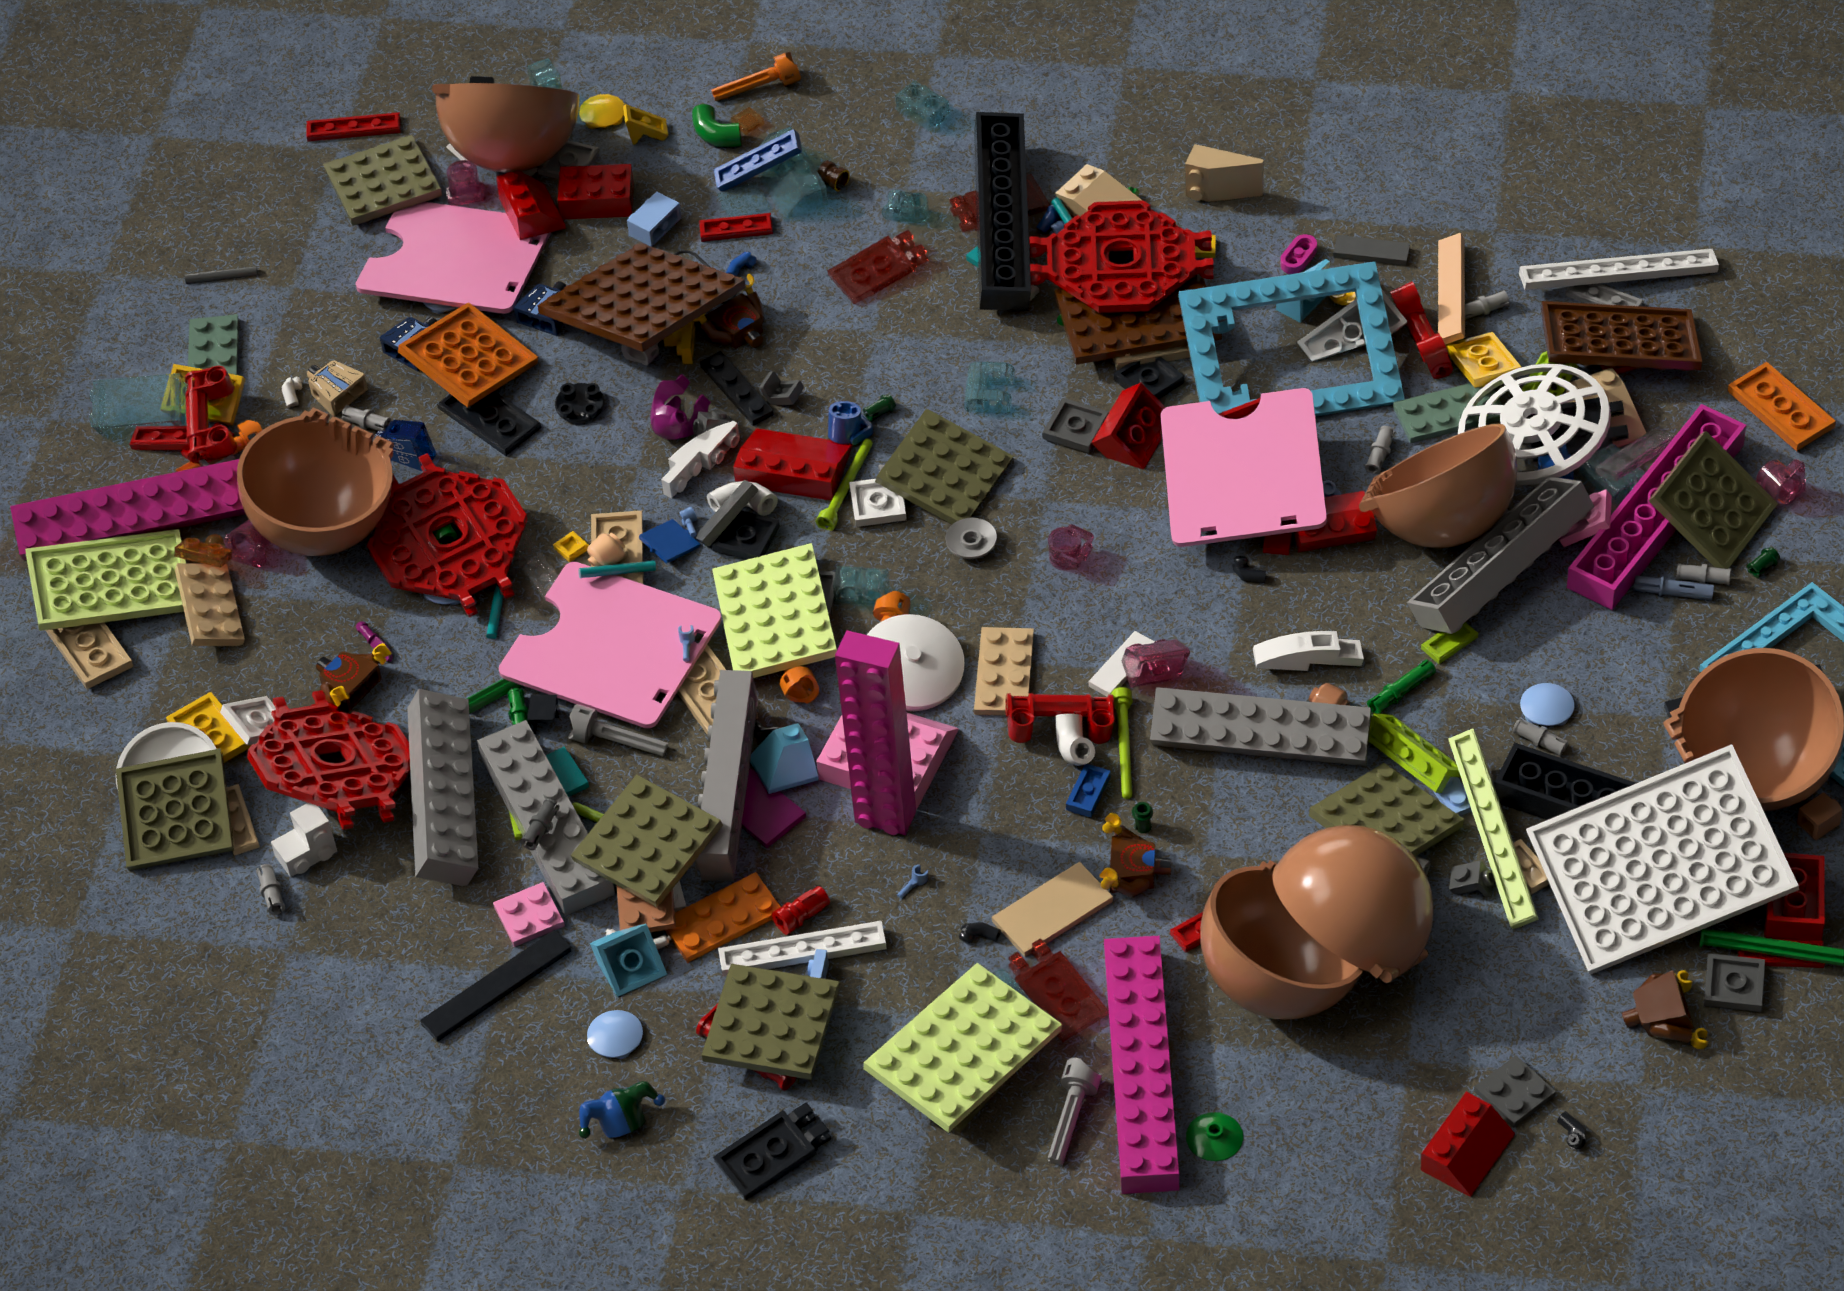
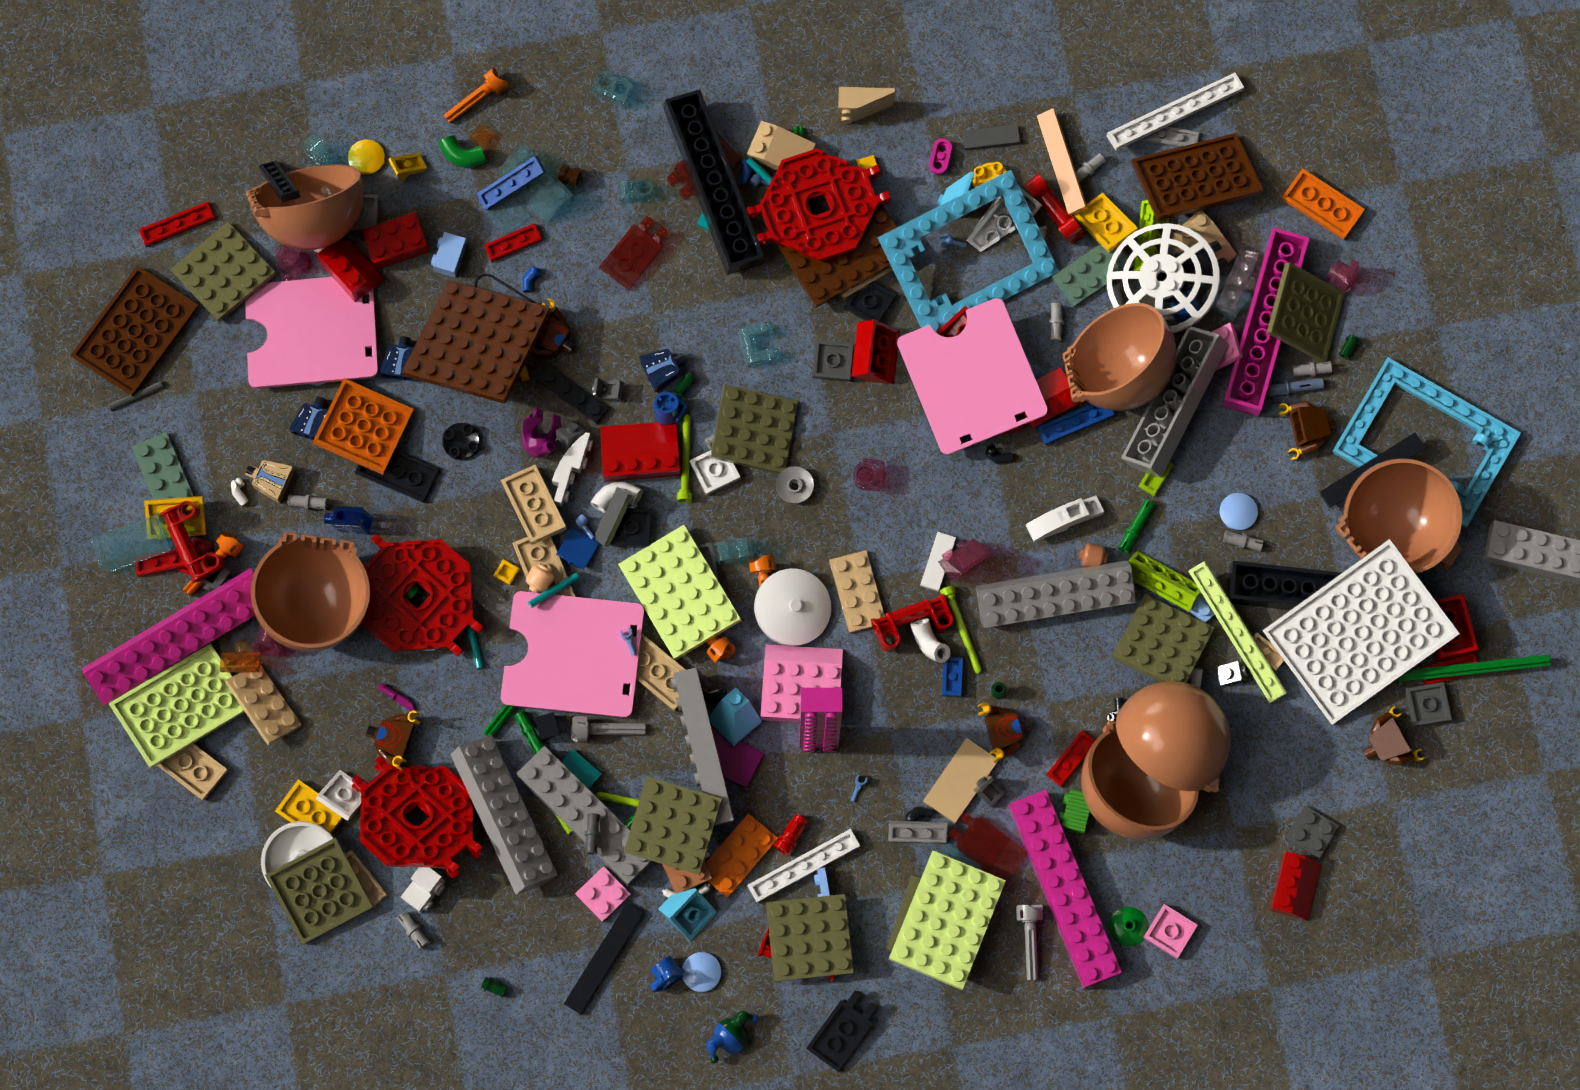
camera: 25 degrees left, 25 degrees up
(252, 212) = (135, 331): none -> reddish brown plate
(336, 974) = (494, 987): none -> dark green pin
(567, 1018) = (666, 974): none -> blue piece
(635, 481) = (533, 504): none -> tan plate
(858, 381) = (662, 367): none -> dark blue torso
(969, 948) = (918, 831): none -> light grey tile
(1083, 924) = (988, 790): none -> dark grey bracket
(1190, 982) = (1075, 813): none -> bright green brick
(1269, 1154) = (1170, 931): none -> bright pink plate
(1273, 337) = (949, 241): none -> medium blue hand
(1363, 557) = (1073, 423): none -> blue plate
(1576, 1131) = (1360, 852): black arm -> none
(1675, 631) = (1308, 425): none -> reddish brown torso

